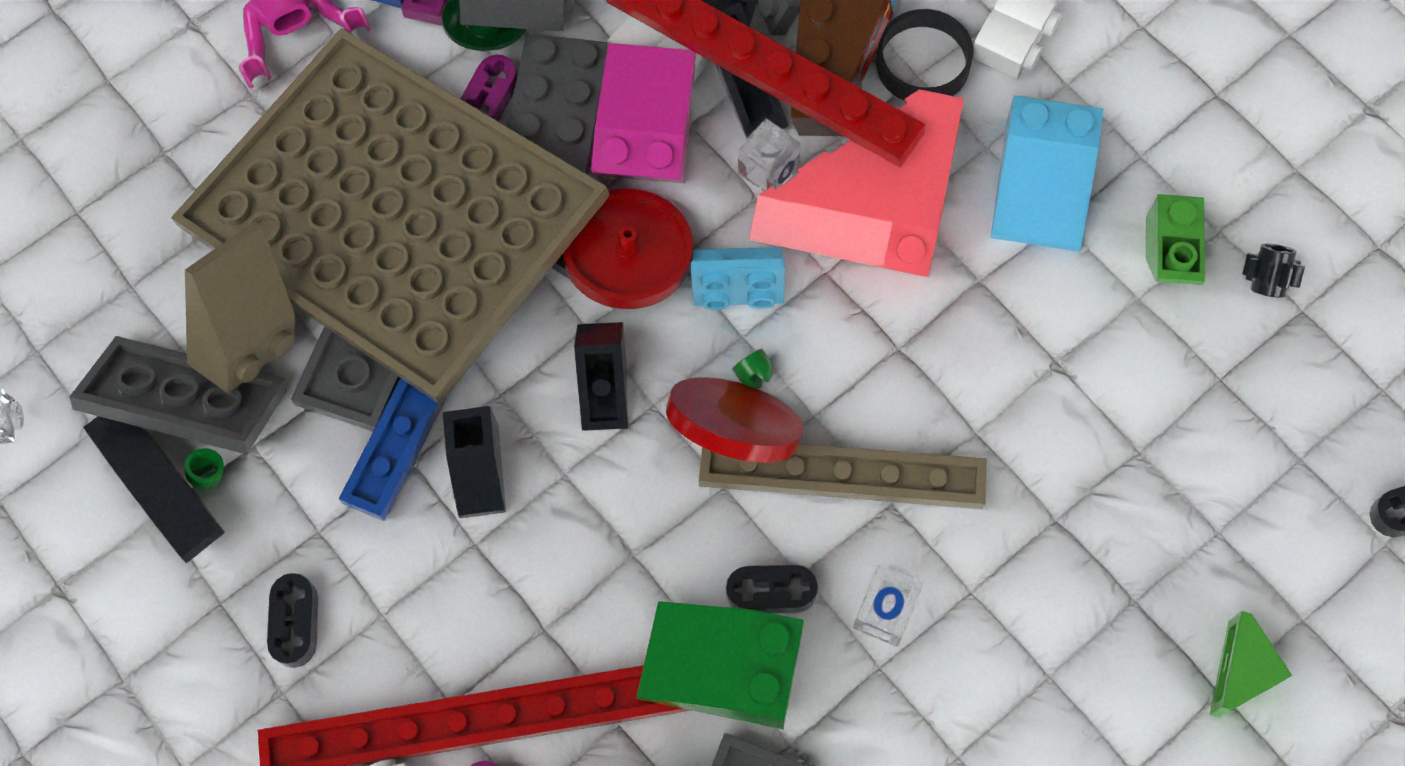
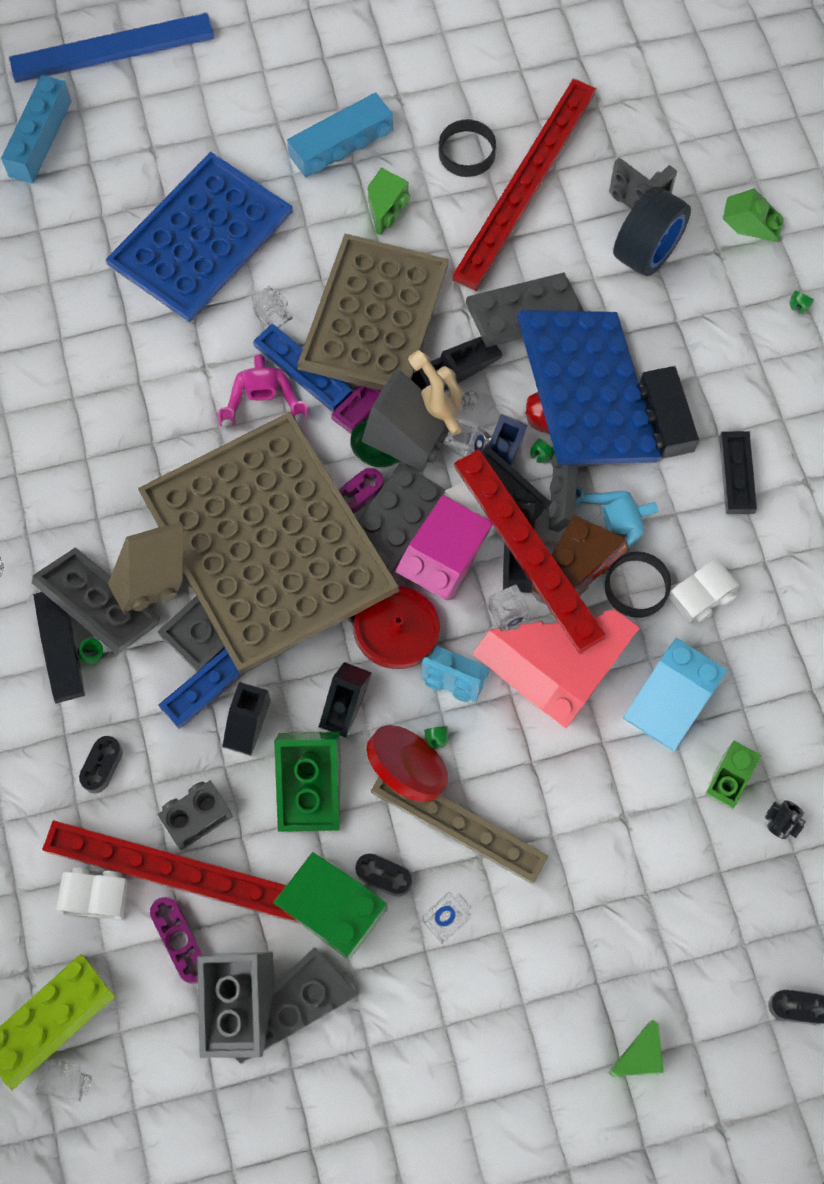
camera: 20 degrees right, 0 degrees up
(475, 632) = (199, 821): none -> dark grey brick
(604, 509) = (308, 781): none -> green slope

